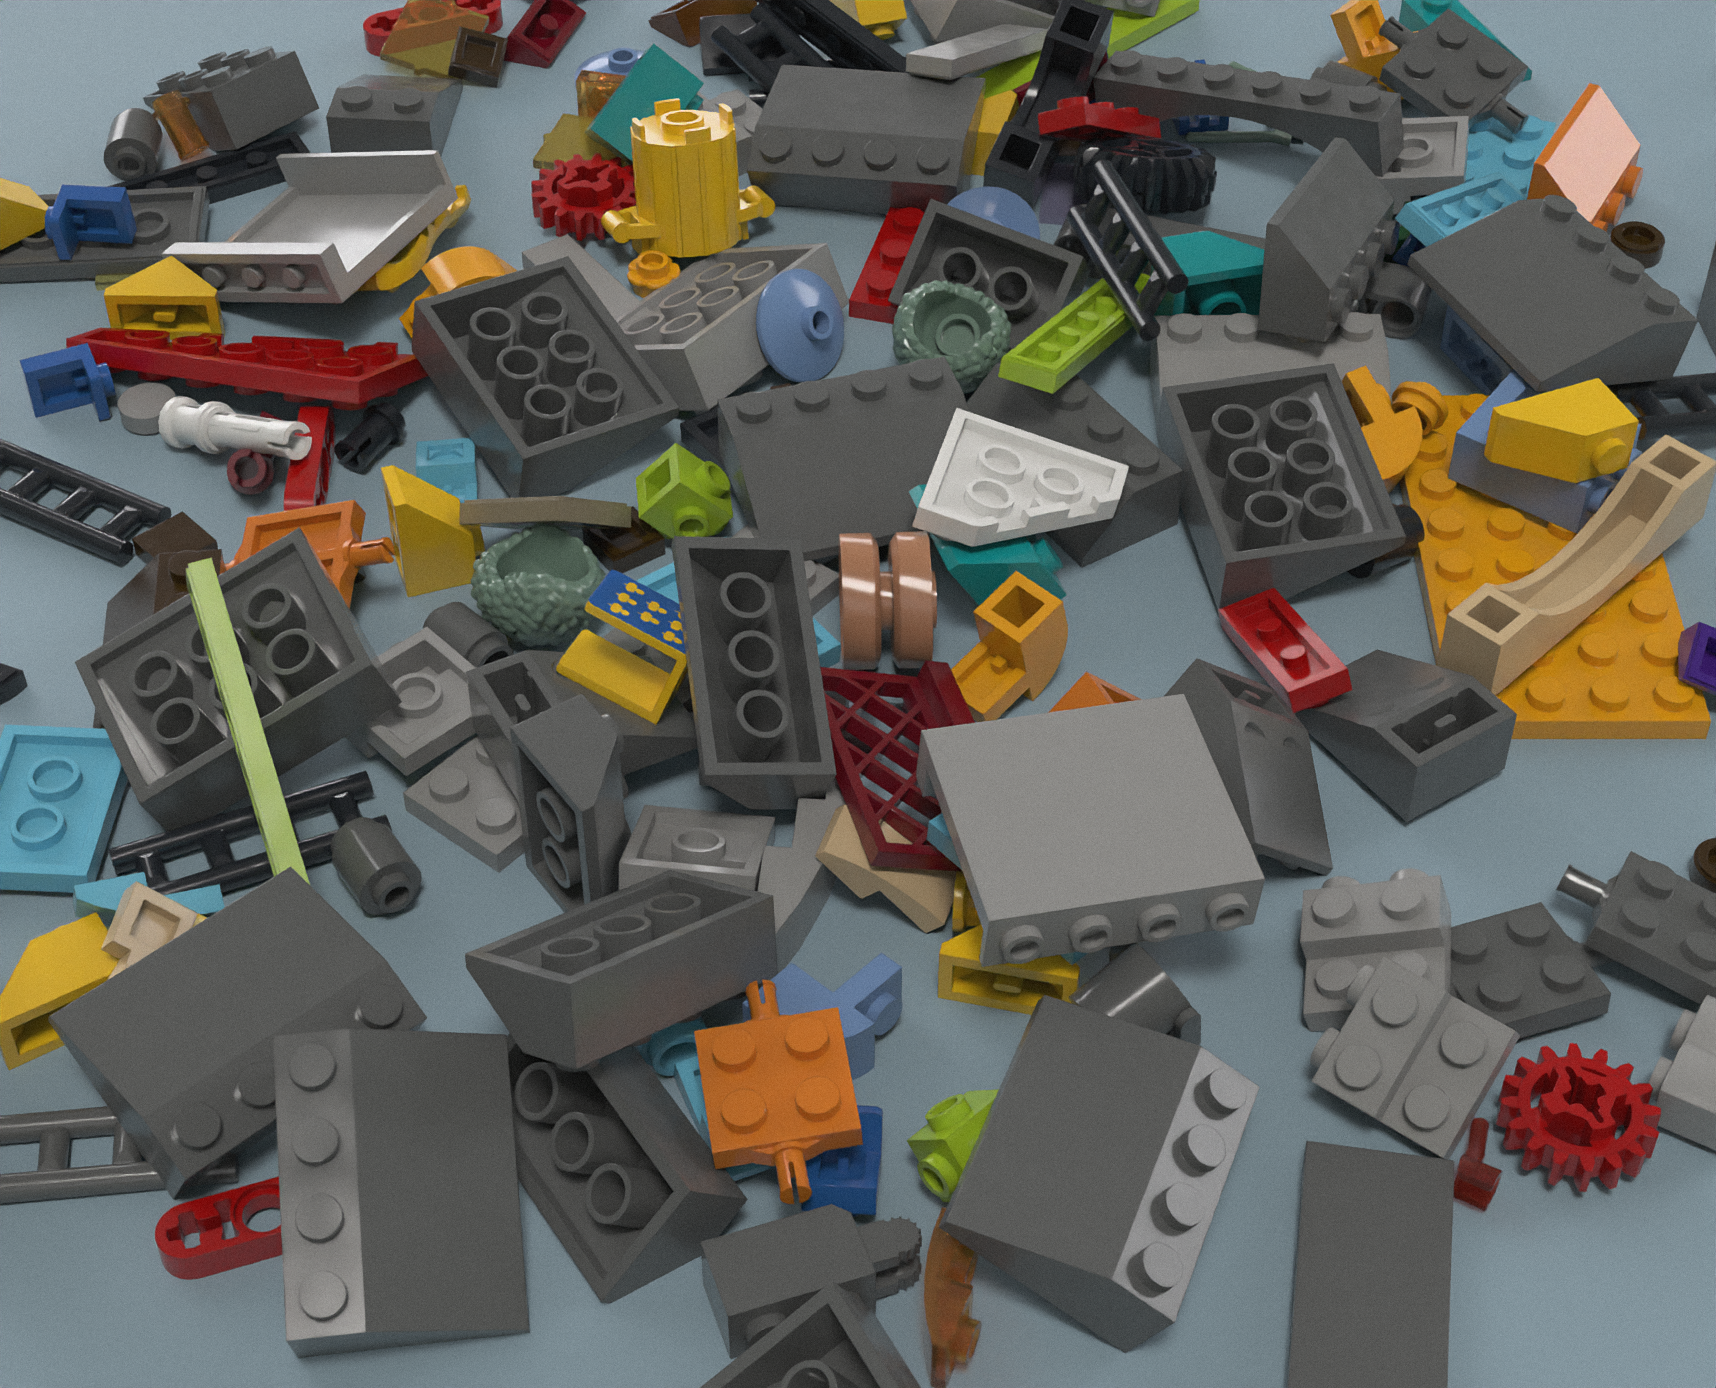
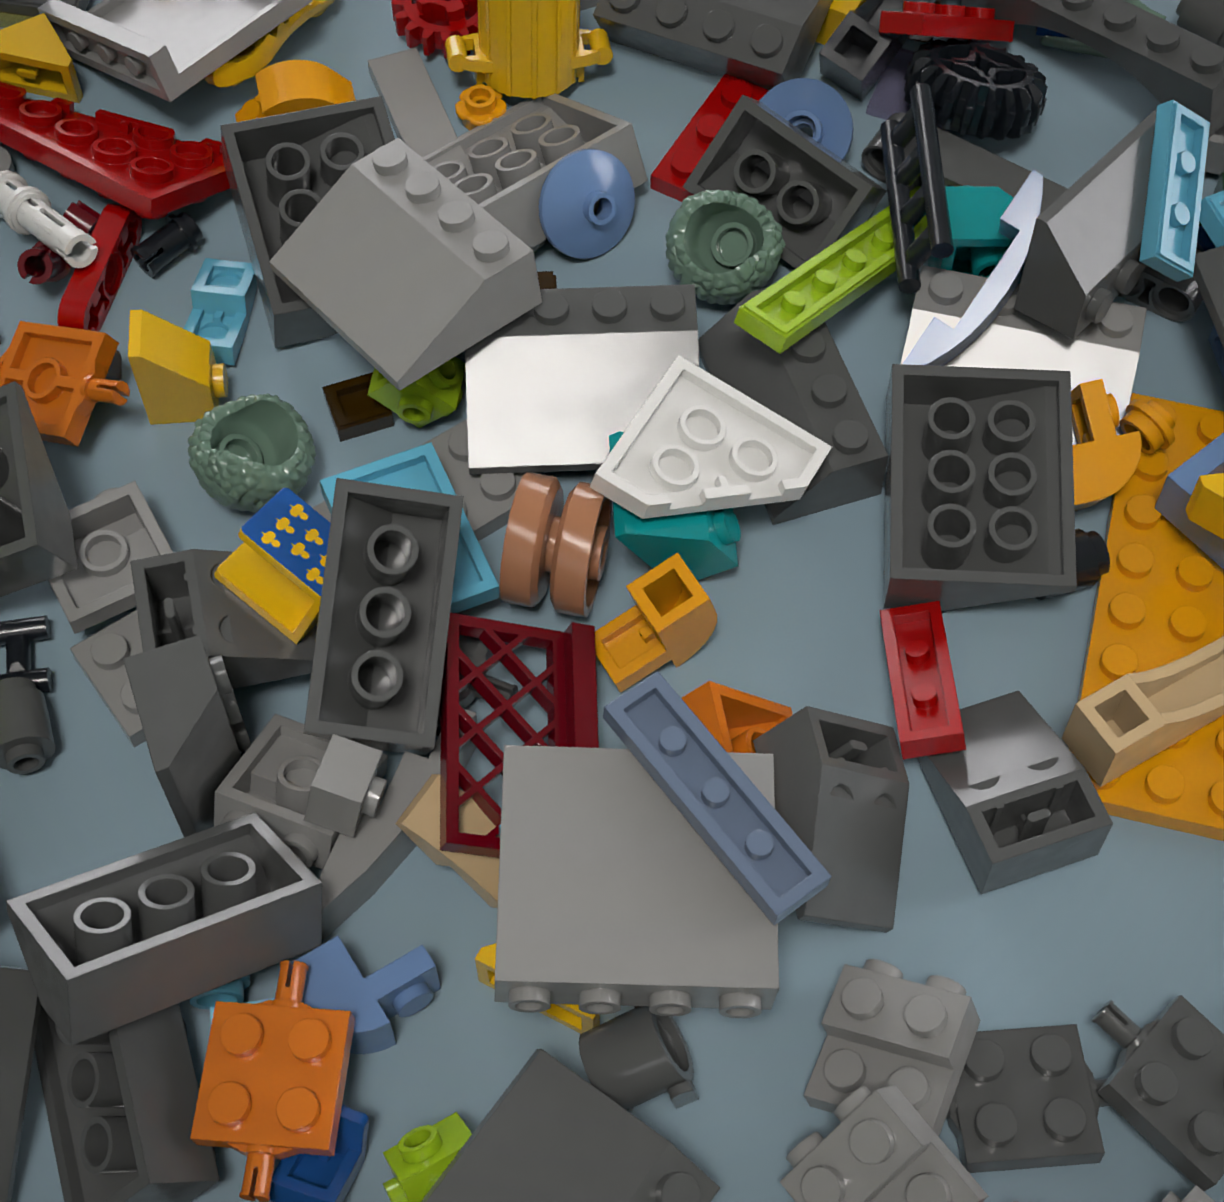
camera: 15 degrees right, 15 degrees up
(468, 634) = (176, 498): dark grey brick -> none
(563, 511) = (278, 378): dark tan tile -> none
(657, 376) = (407, 265): none -> light grey slope
(759, 824) = (345, 786): none -> light grey plate
(1148, 727) = (716, 797): none -> sand blue plate
(1244, 253) = (943, 343): none -> slope
(1377, 202) = (1174, 191): none -> medium azure tile

